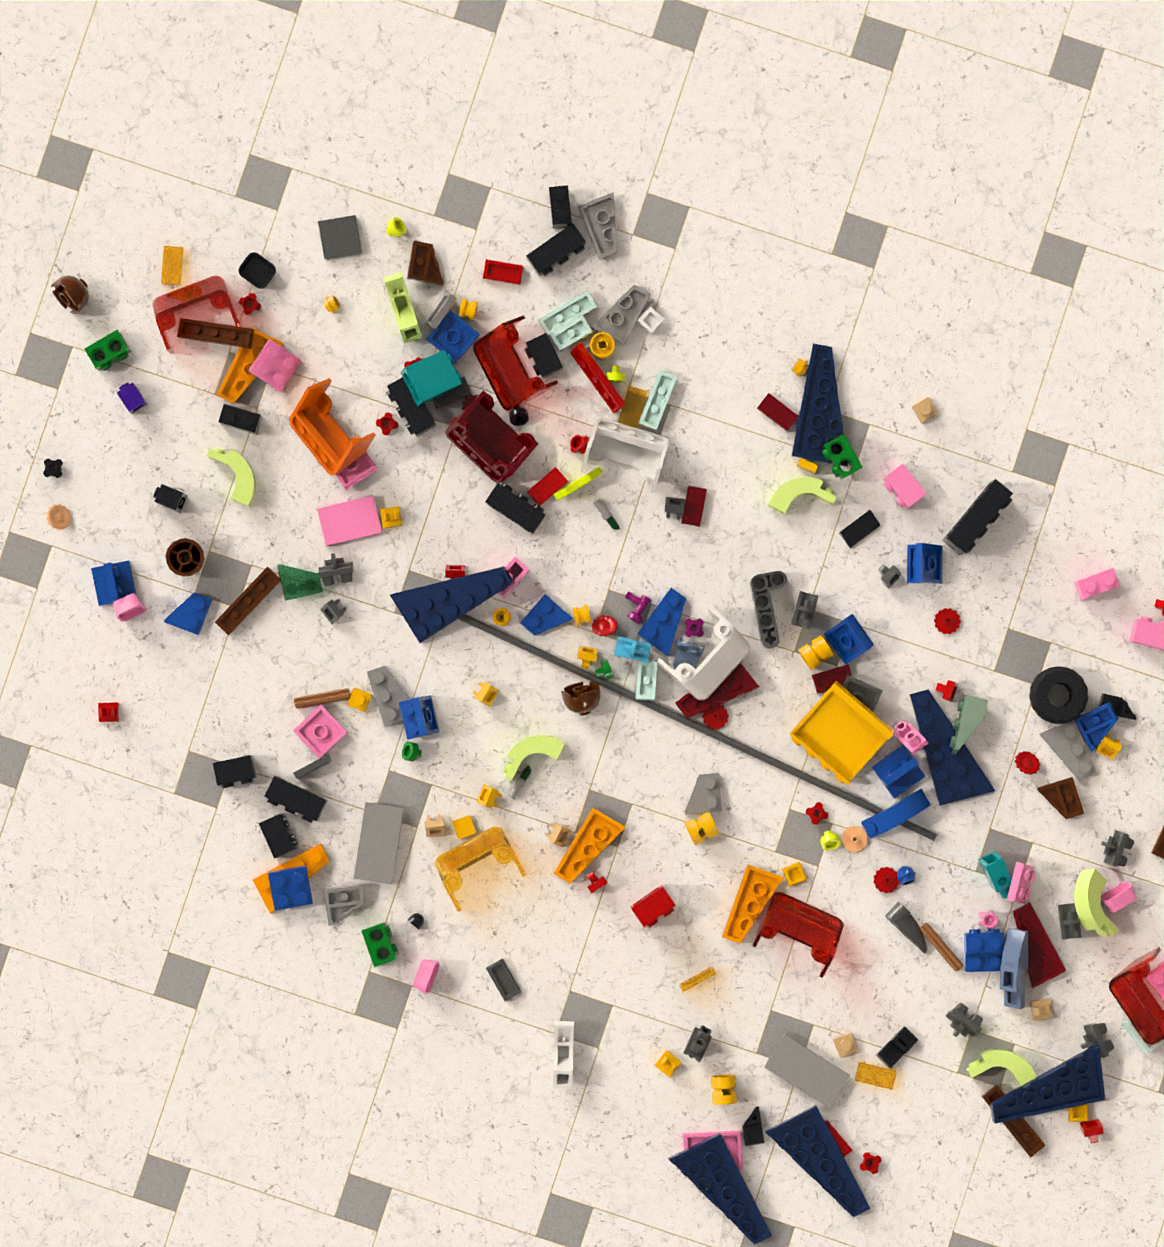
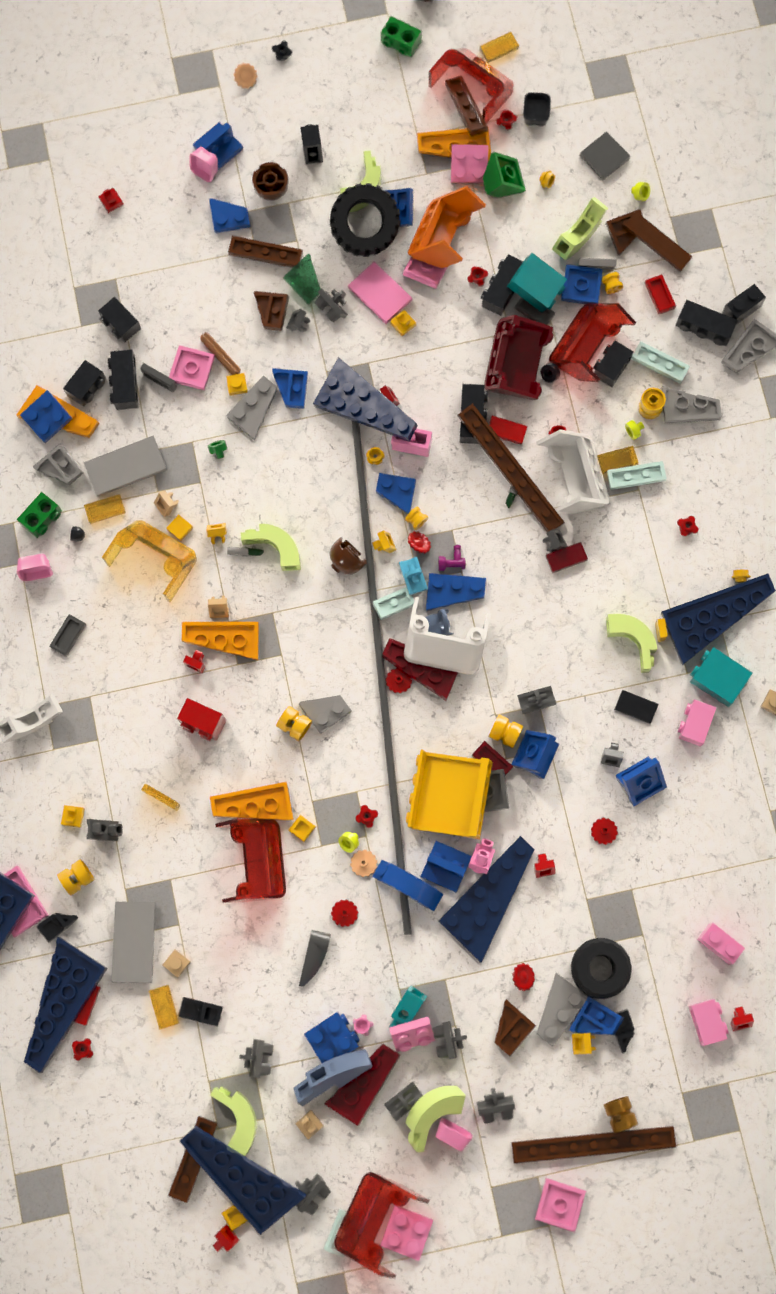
camera: 70 degrees right, 10 degrees down
(131, 397) = (374, 74): dark purple brick -> none
(240, 419) = (409, 162): black brick -> none
(253, 495) = (339, 220): none -> black tyre
(277, 453) = (404, 202): none -> blue wing
(306, 342) = (503, 176): none -> green slope
(307, 627) = (272, 309): none -> reddish brown wing
(392, 652) = (292, 386): none -> blue wing
(406, 883) = (104, 508): none -> clear yellow tile
(419, 717) = (251, 436): blue bracket -> none
(454, 243) = (658, 241): none -> reddish brown tile
(486, 694) = (302, 480): yellow tile -> none
(565, 491) = (533, 454): neon yellow tile -> none
(571, 333) = (645, 374): light aqua plate -> none
(587, 506) = (510, 468): none -> reddish brown tile
(597, 378) = (622, 416): red tile -> none
(605, 670) = (381, 564): green tile -> none
(650, 320) = (699, 431): white plate -> none
(698, 631) = (463, 622): magenta plate -> none
(729, 389) = (684, 531): none -> red plate
(768, 610) = (516, 669): dark grey beam -> none
(777, 412) = (690, 579): dark red tile -> none
(847, 454) = (692, 654): green brick -> none
(877, 441) = (720, 676): none -> teal brick
(906, 875) = (358, 927): blue plate -> none
(941, 947) = (313, 998): medium nougat axle -> none
(971, 715) = (528, 901): sand green slope -> none
(977, 517) = (712, 800): black brick -> none
(1049, 859) = (449, 1049): none -> dark grey hips

